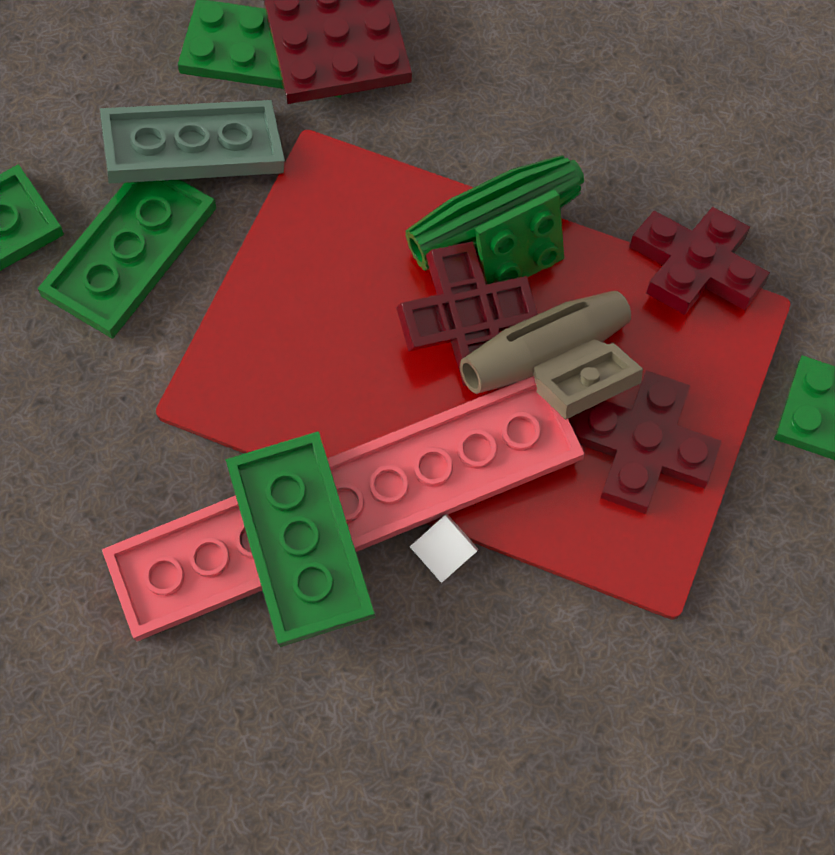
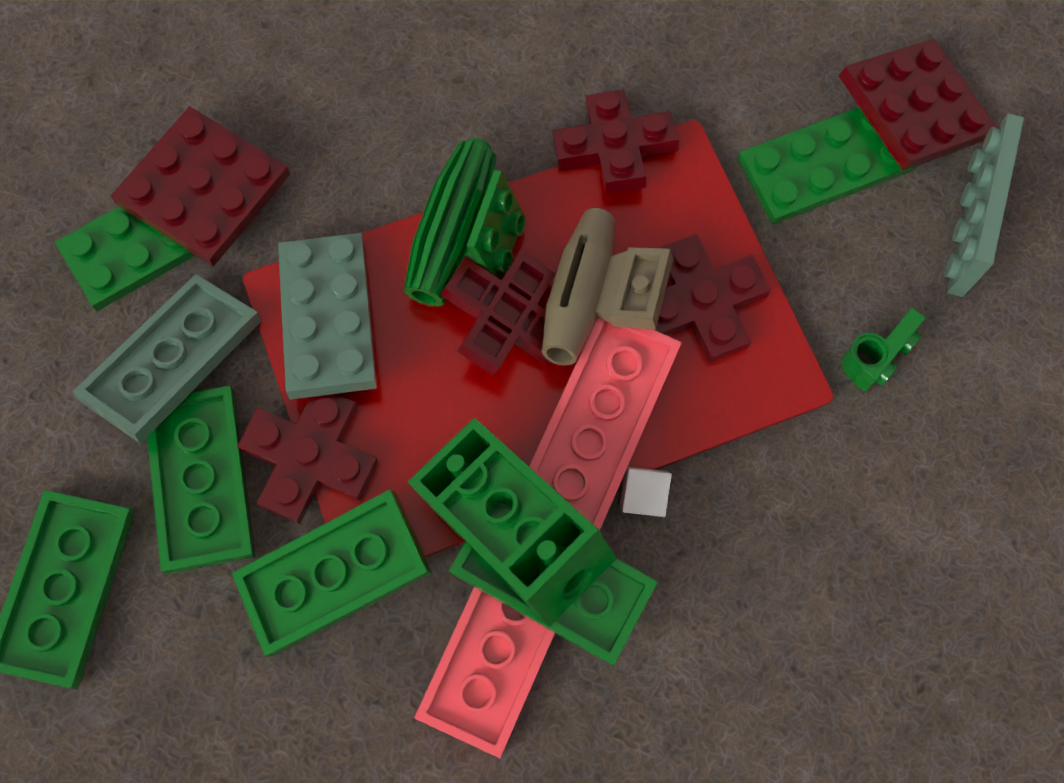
camera: 45 degrees left, 5 degrees up
(149, 393) = (331, 573): none -> green plate
(219, 296) = (307, 455): none -> dark red plate
(300, 494) = (539, 546): none -> green plate
(330, 205) = (326, 316): none -> sand green plate
(788, 619) = (881, 351): none -> green plate

